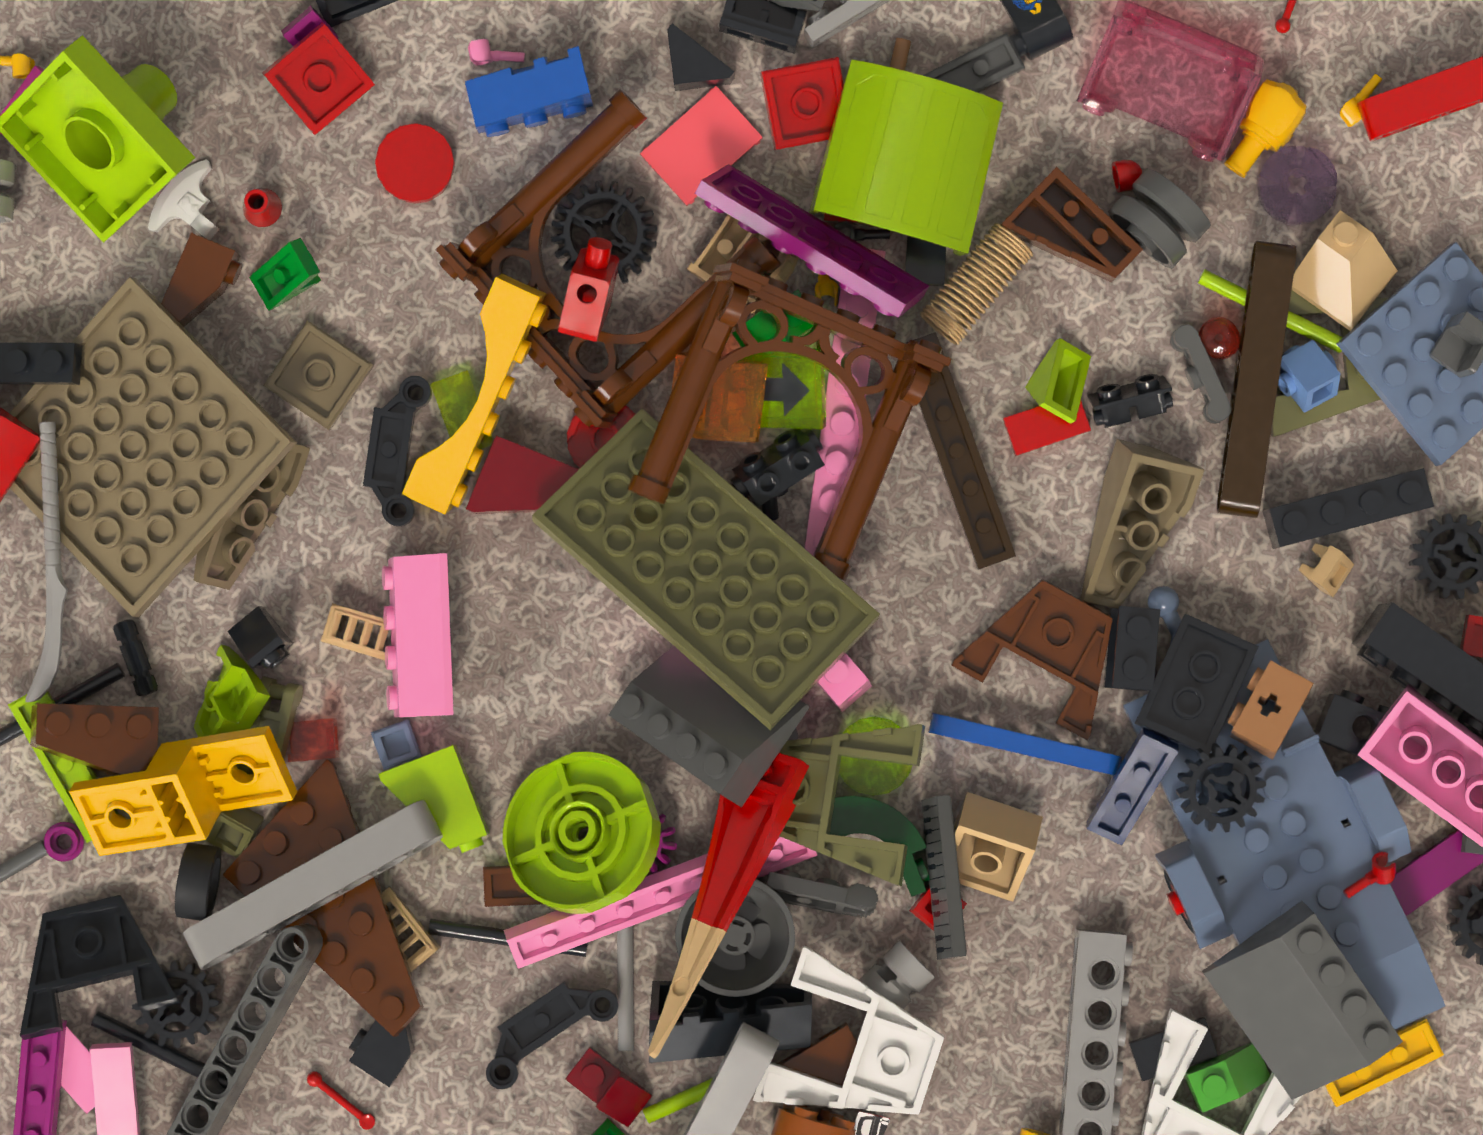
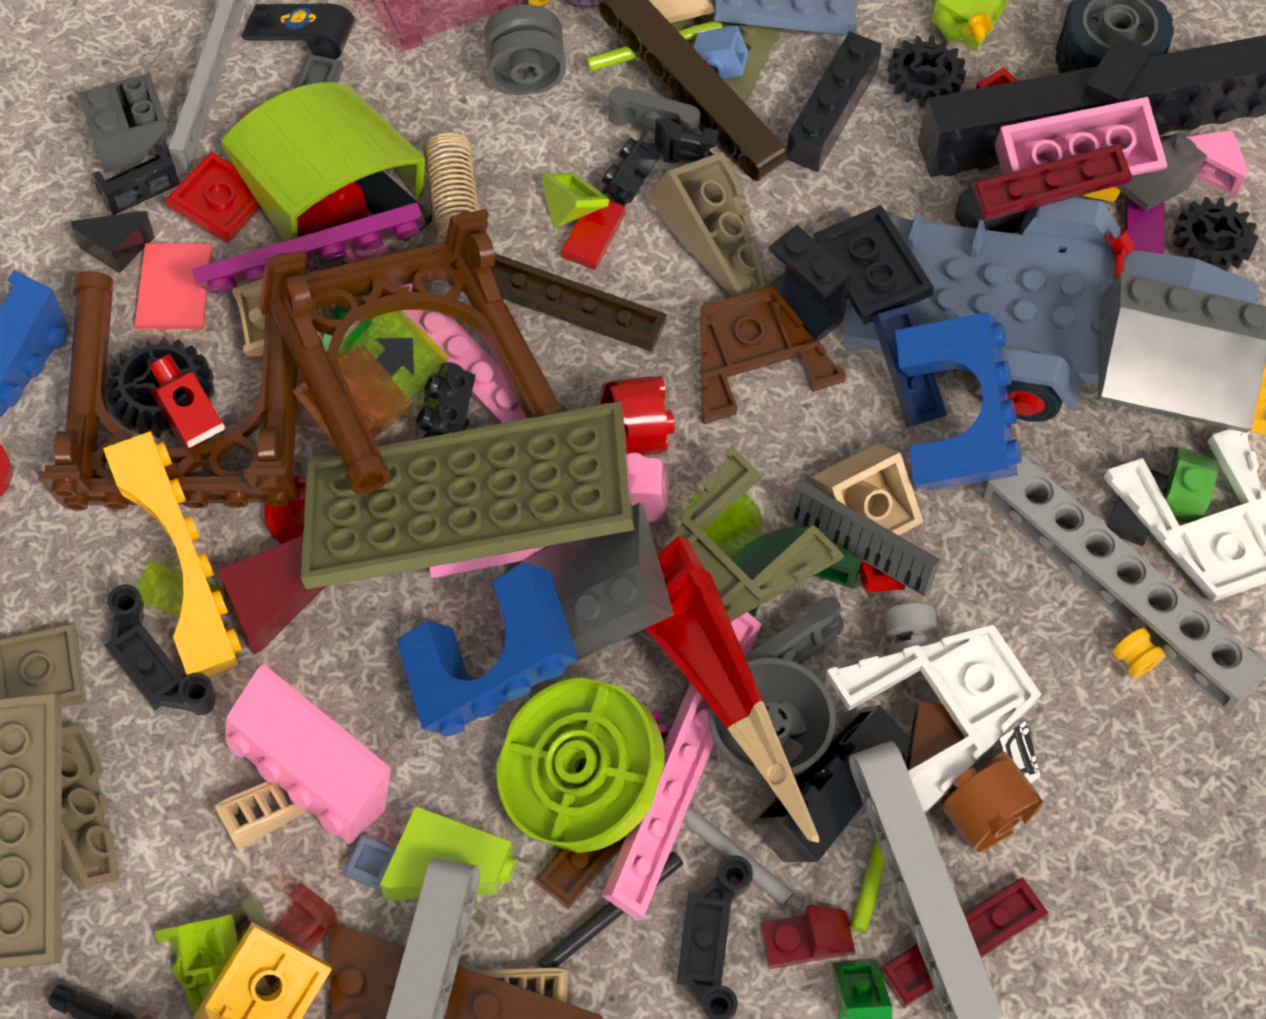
camera: 50 degrees left, 25 degrees down
(261, 639) = (182, 885): black slope -> none
(630, 730) = (534, 651): none -> blue arch
(903, 615) = (643, 412): none -> red brick
(1024, 744) = (814, 414): blue beam -> none
(1073, 228) = (480, 103): reddish brown wedge -> none
(1125, 174) = (474, 60): red hinge -> none
(1165, 844) = (988, 446): none -> blue arch
(1186, 419) = (680, 144): none -> black piece
(1228, 345) = (642, 80): clear red piece -> none
(1229, 774) = (966, 292): black gear -> none
(1288, 694) = (935, 228): medium nougat brick -> none
(1330, 570) = (866, 144): tan tile -> none
(1389, 774) = (1052, 182): none -> dark red tile

